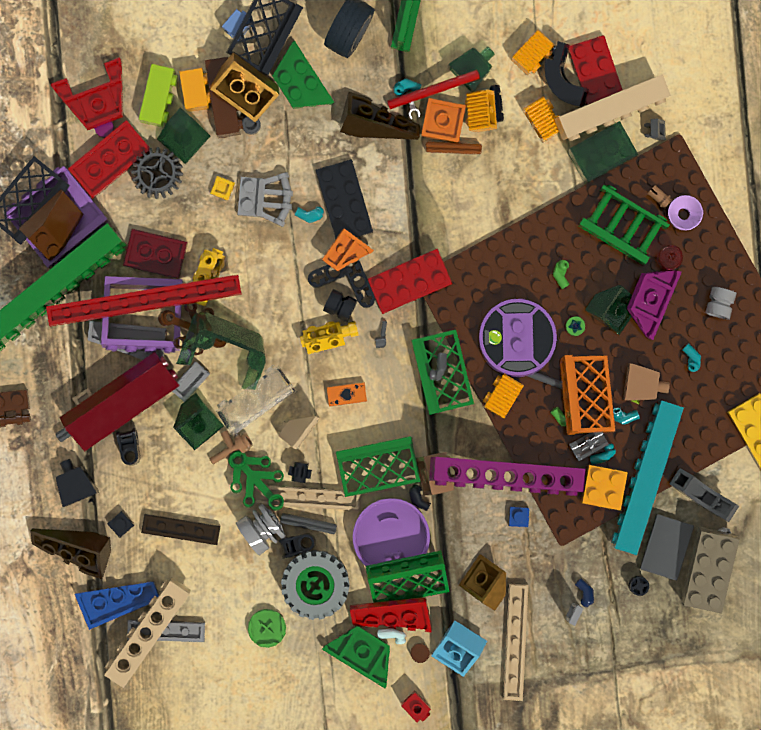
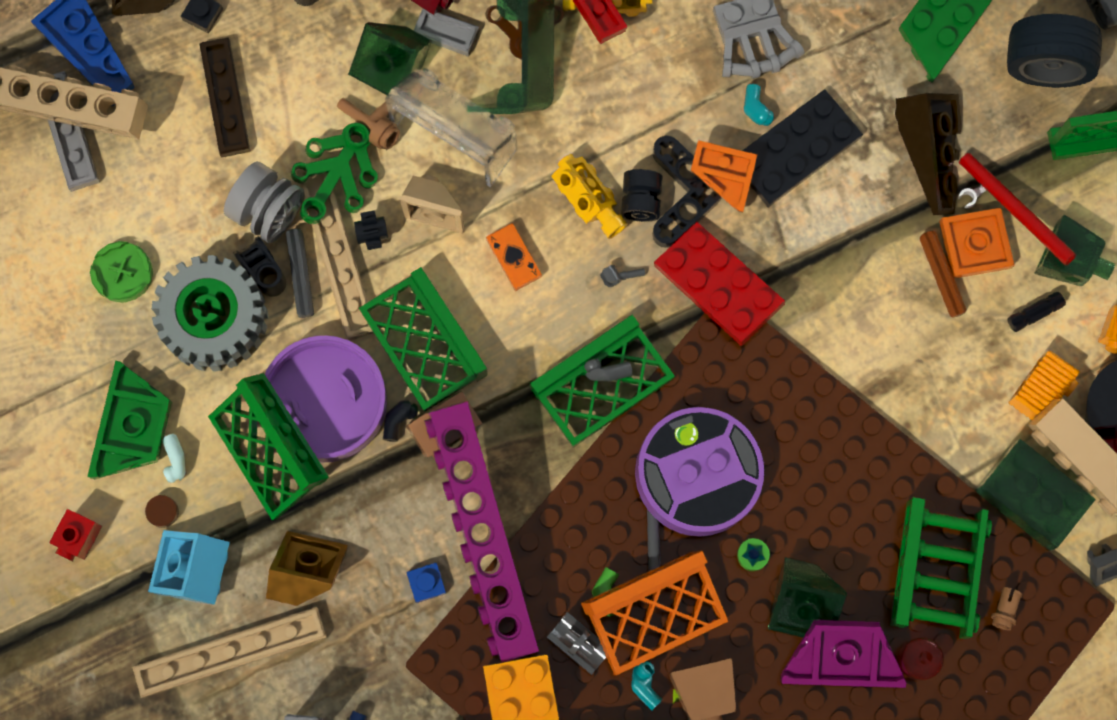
camera: 65 degrees right, 10 degrees down
(397, 613) = (212, 459): red wing -> none
(405, 85) = (1002, 170): teal arm -> none
(481, 110) = (1016, 290): light orange brick -> none
(503, 395) = (603, 483): light orange brick -> none
(559, 273) = (824, 499): bright green arm -> none
(605, 456) = (569, 677): teal arm -> none
(694, 208) = (1015, 652): lavender piece -> none

